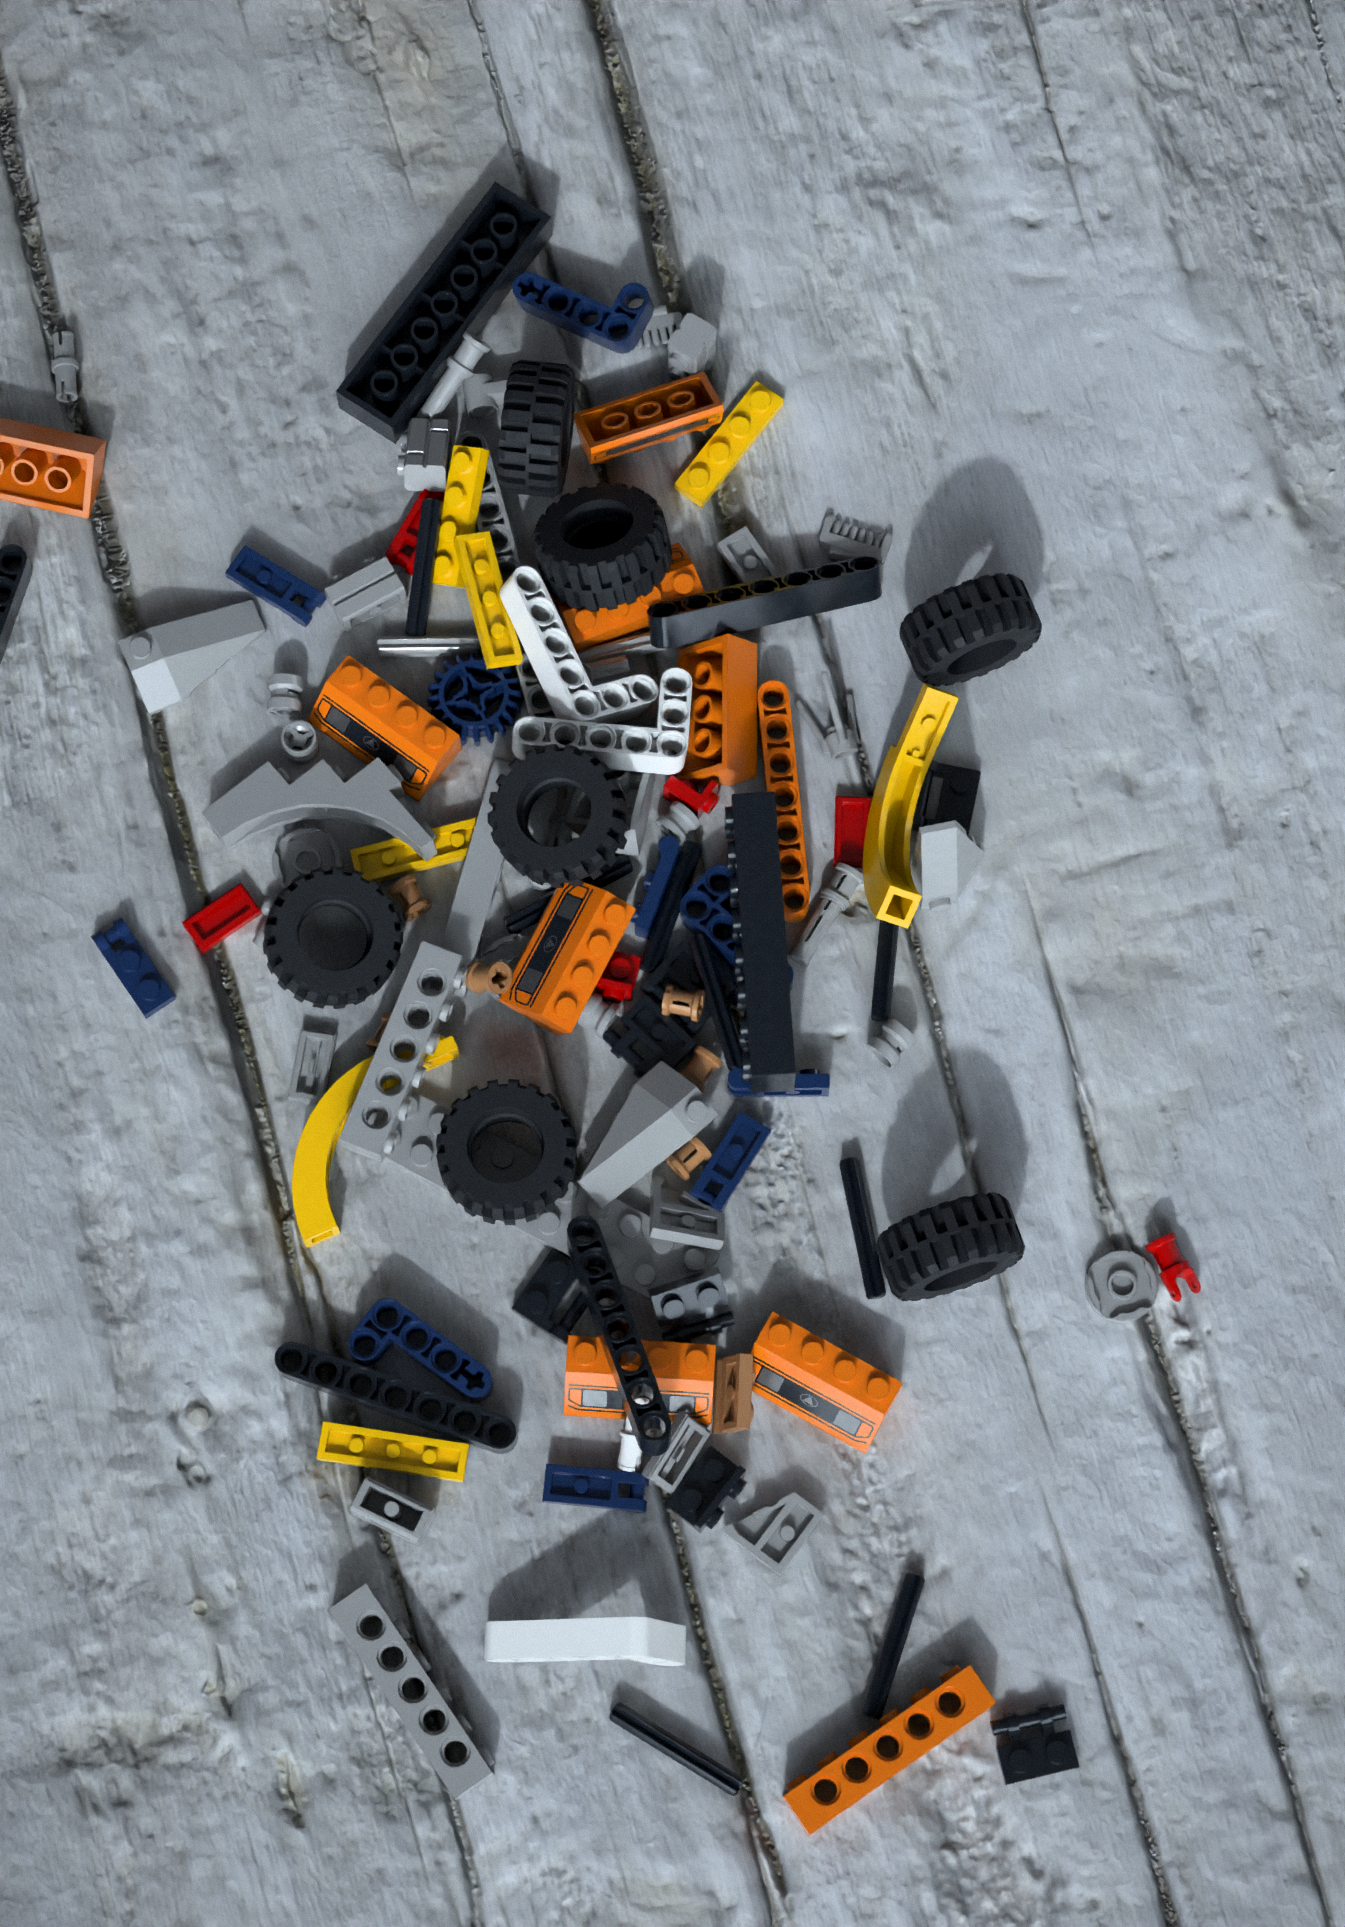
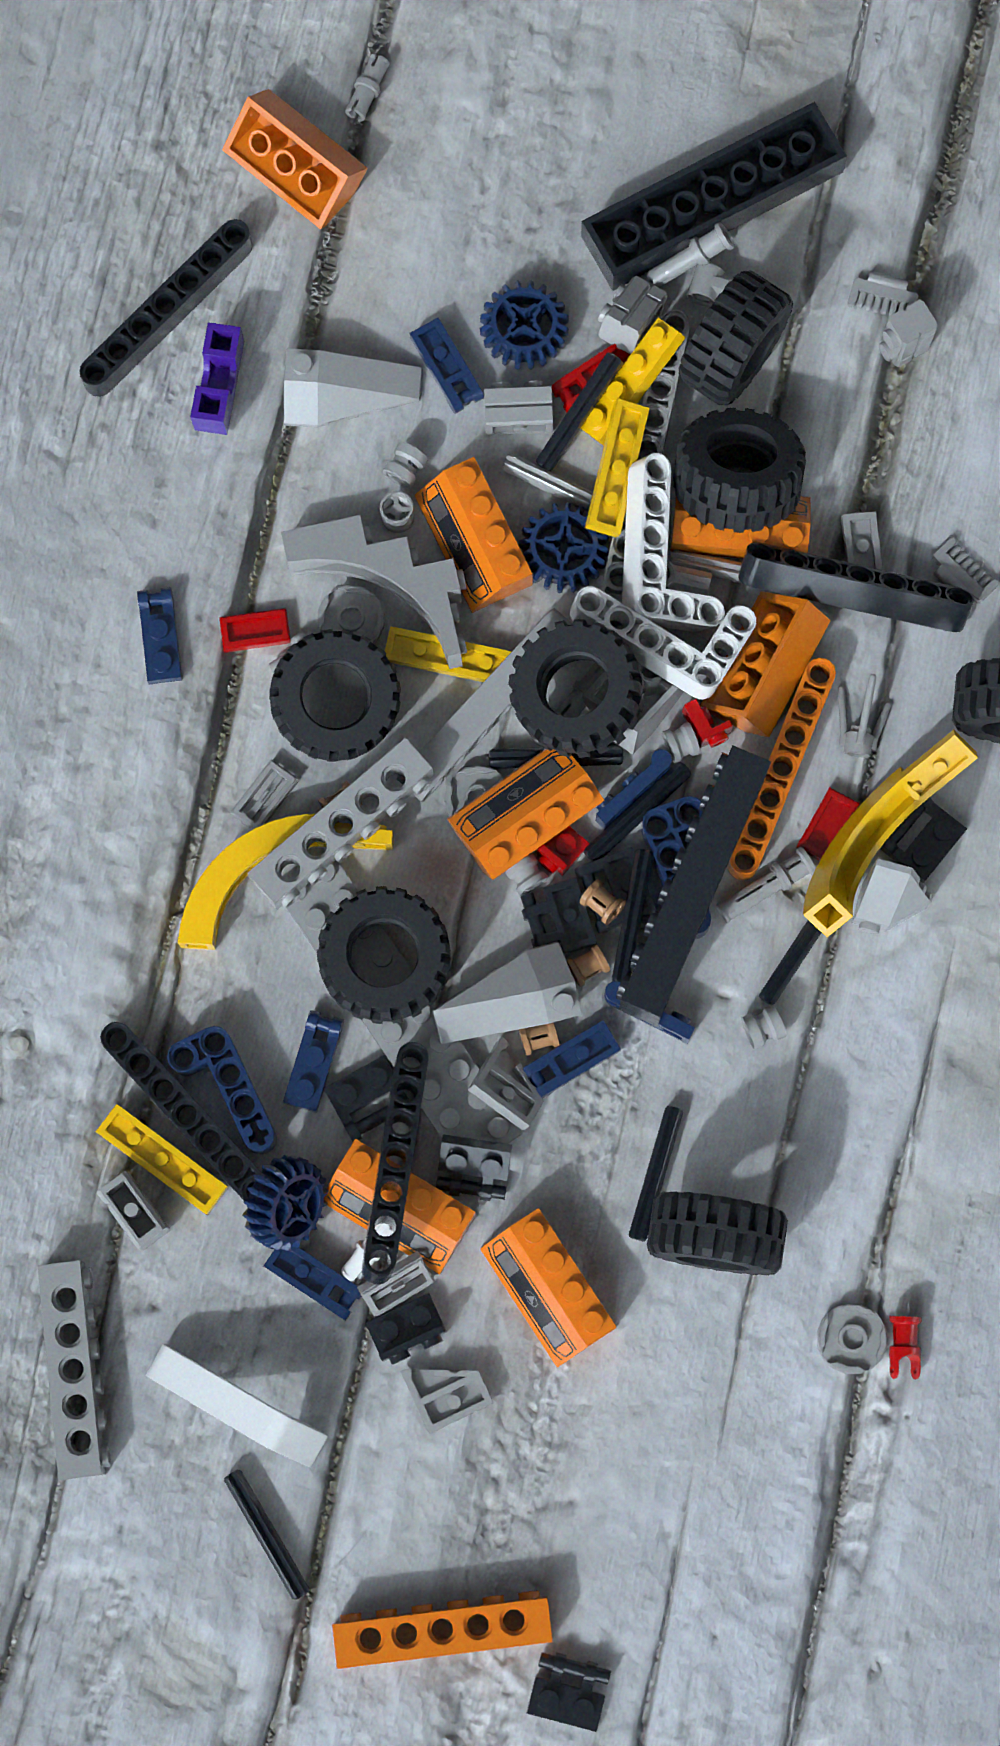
camera: 30 degrees right, 5 degrees up
(65, 701) = (221, 367): none -> dark purple arch
(304, 502) = (540, 305): none -> dark blue gear
(409, 897) = (420, 692): medium nougat bush -> none
(489, 1290) = (313, 1062): none -> dark blue plate
(492, 977) = (451, 798): medium nougat bush -> none
(533, 1428) = (285, 1202): none -> dark blue gear
(580, 307) = (832, 248): dark blue beam -> none
(648, 418) = (839, 375): orange slope -> none
(729, 444) = (899, 431): yellow plate -> none
(733, 1394) = (469, 1259): medium nougat plate -> none
(893, 1646) = (494, 1544): black axle -> none

